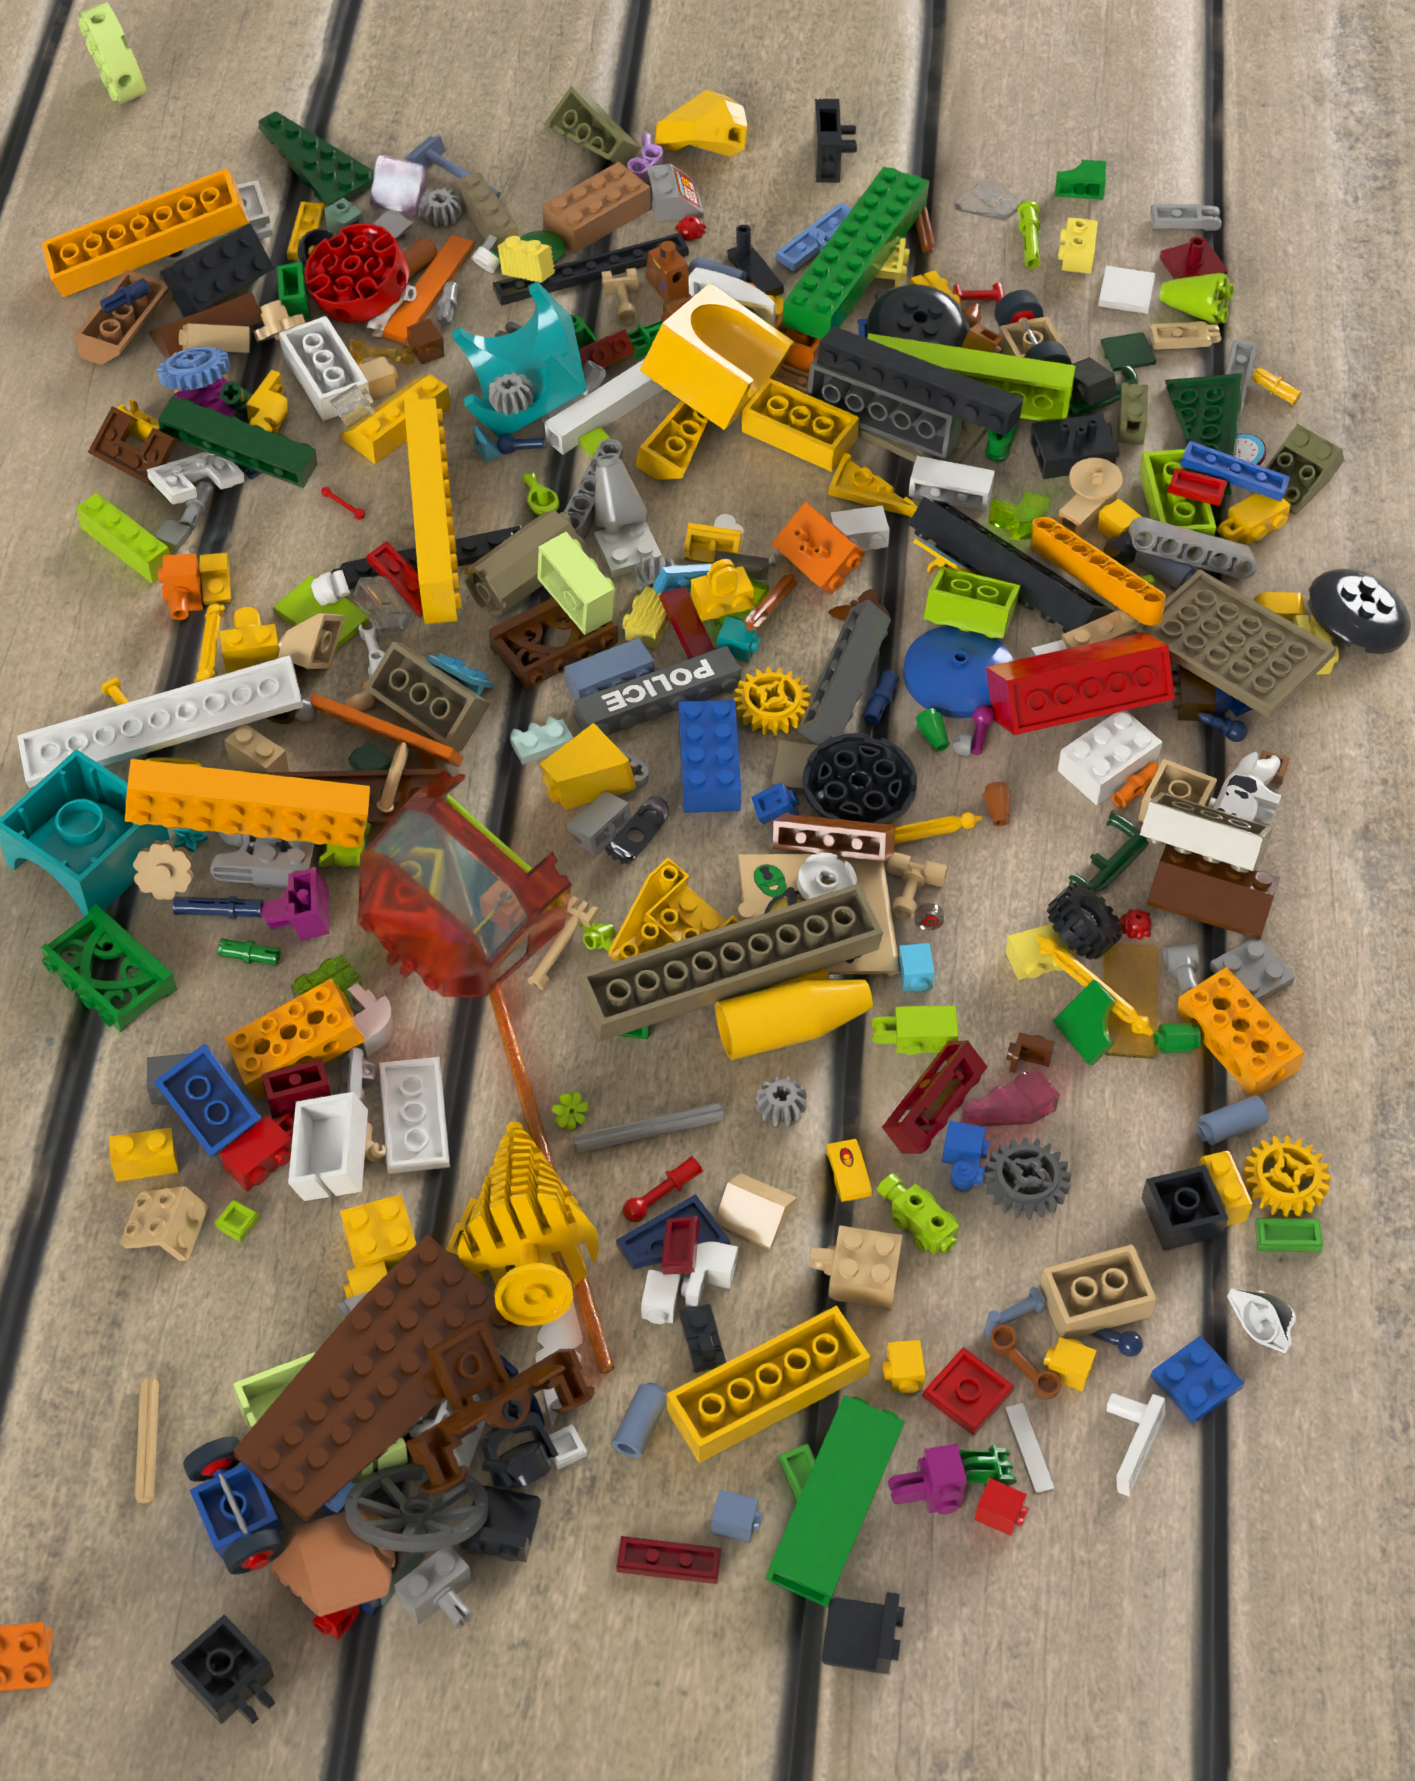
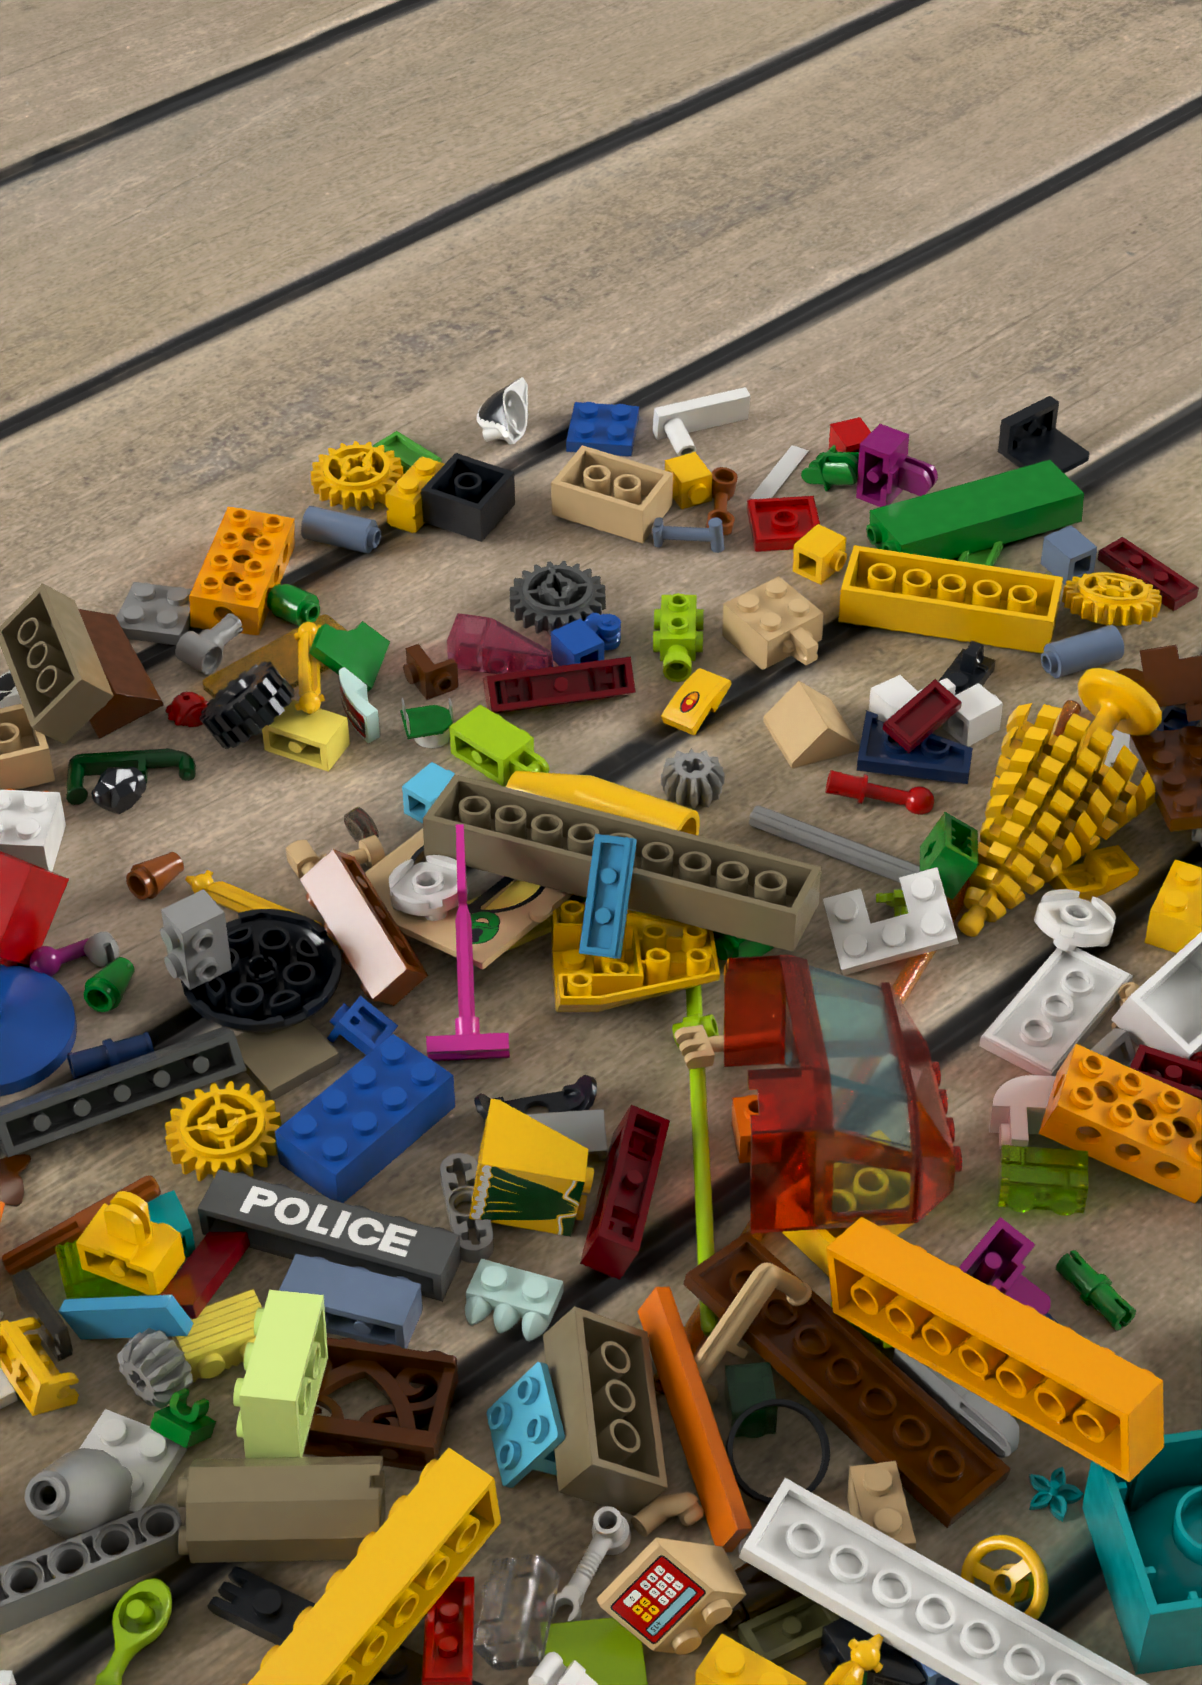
camera: 135 degrees left, 10 degrees down
(337, 755) = (812, 1418): none -> black tyre
(455, 1191) = (1074, 920): none -> white plate
(533, 810) = (625, 1192): none -> dark red brick
(535, 1081) = (920, 931): none -> white plate
(561, 1145) = (953, 850): none -> green brick
(620, 572) = (182, 1423): none -> green tile
(672, 1458) = (1111, 599): none -> yellow gear
(704, 920) = (607, 896): none -> dark azure tile
(714, 830) = (467, 1041): none -> dark pink piece
(888, 736) = (195, 939): none -> light grey brick
(984, 1014) = (428, 724): none -> green piece
(1049, 996) = (356, 706): none -> light aqua slope
(1089, 832) = (119, 789): none -> black rock

